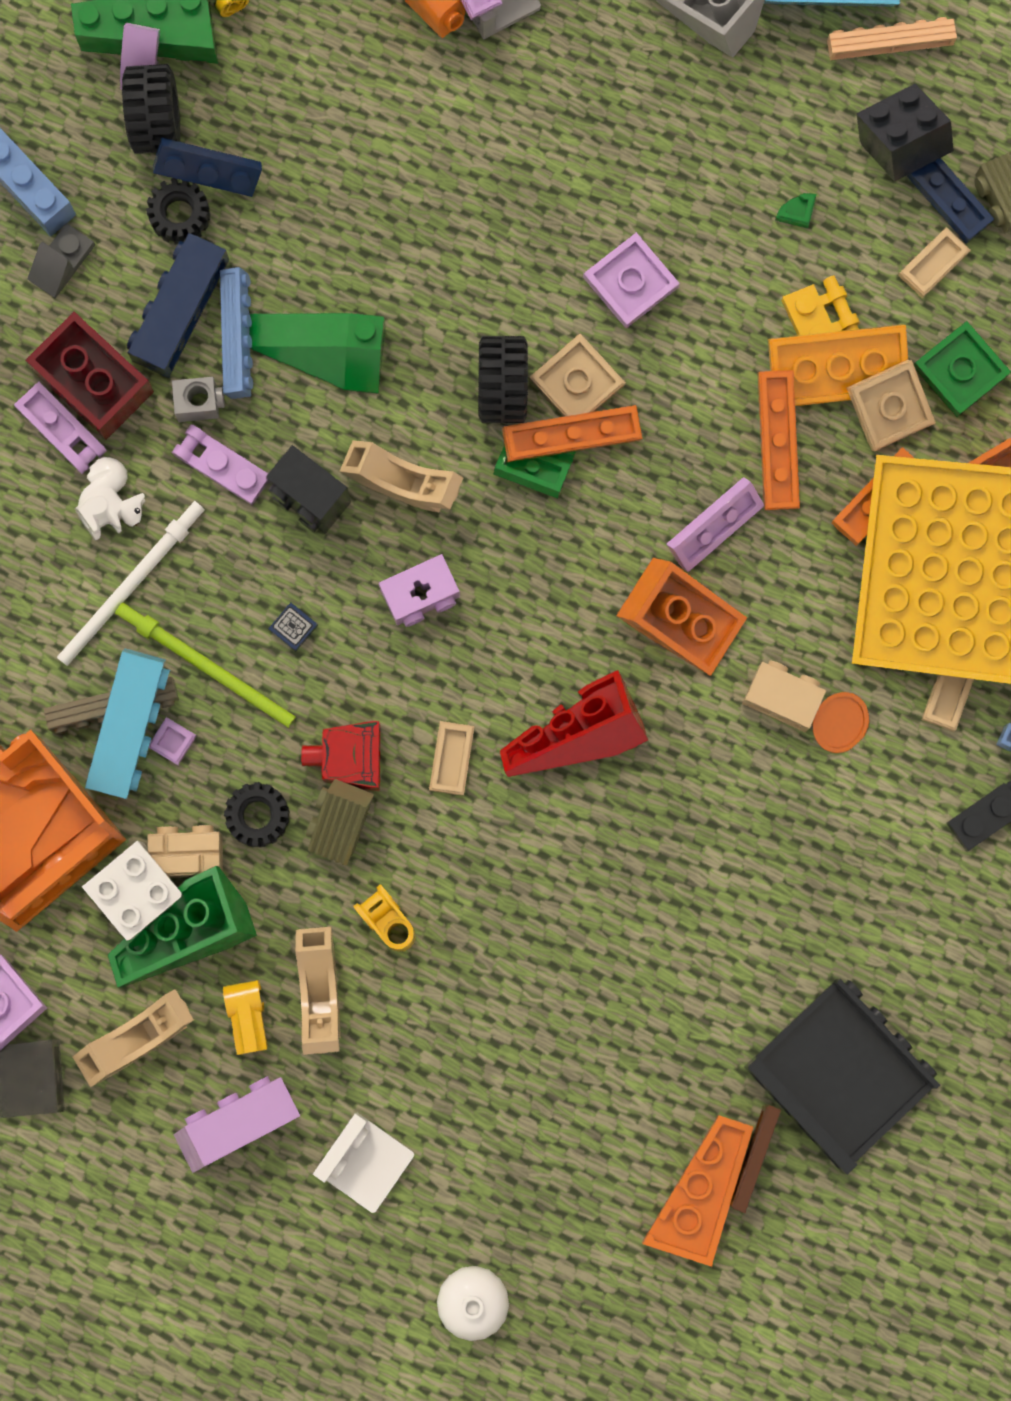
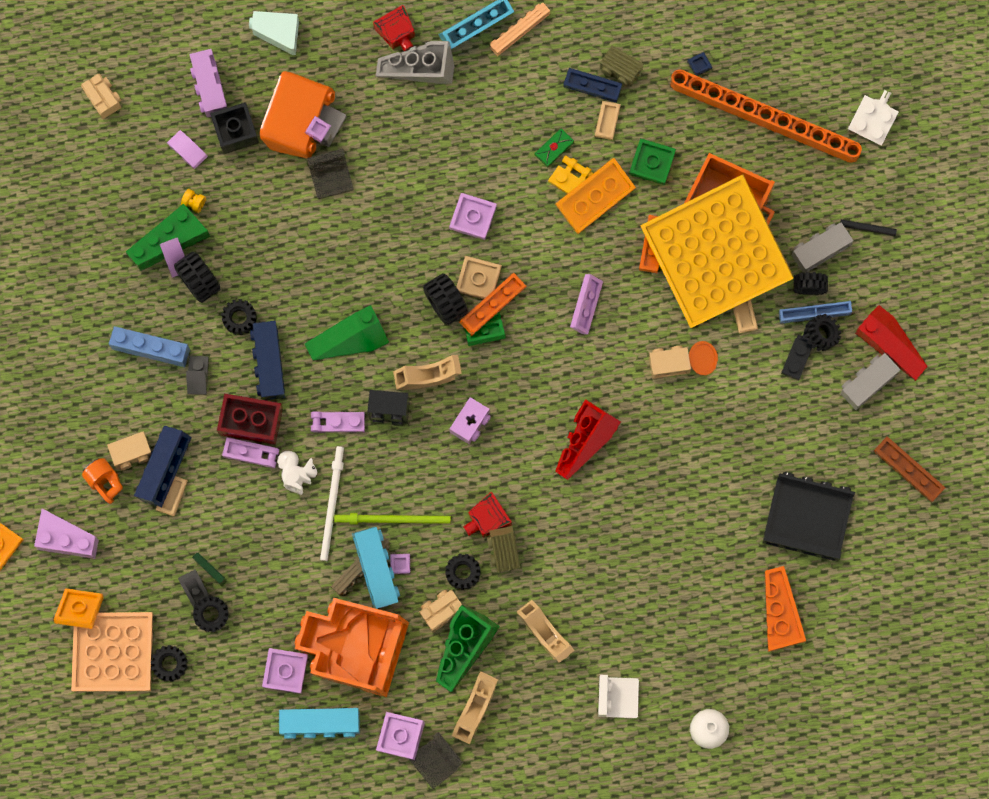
camera: 25 degrees left, 5 degrees down
(132, 890) = (429, 641): white bracket -> none
(186, 389) = (304, 406): light grey brick -> none
(207, 167) = (241, 287): dark blue plate -> none
(235, 333) = (305, 358): medium blue piece -> none
(235, 1123) = (547, 717): lavender wedge -> none
(245, 1010) = (519, 666): yellow piece -> none
(293, 627) = (421, 475): tile -> none
(385, 918) = (553, 580): yellow piece -> none
(451, 758) = (535, 488): tan tile -> none
(457, 79) = (330, 174): none -> clear smoke bracket
(681, 615) = (598, 355): orange slope -> none
(754, 1157) = (793, 579): reddish brown tile -> none
(778, 440) = (590, 247): orange tile -> none
(797, 210) = (528, 135): green tile -> none
(824, 253) = (554, 147): none -> green tile
(891, 405) = (631, 198): tan tile -> none
(905, 132) = (555, 69): black brick -> none

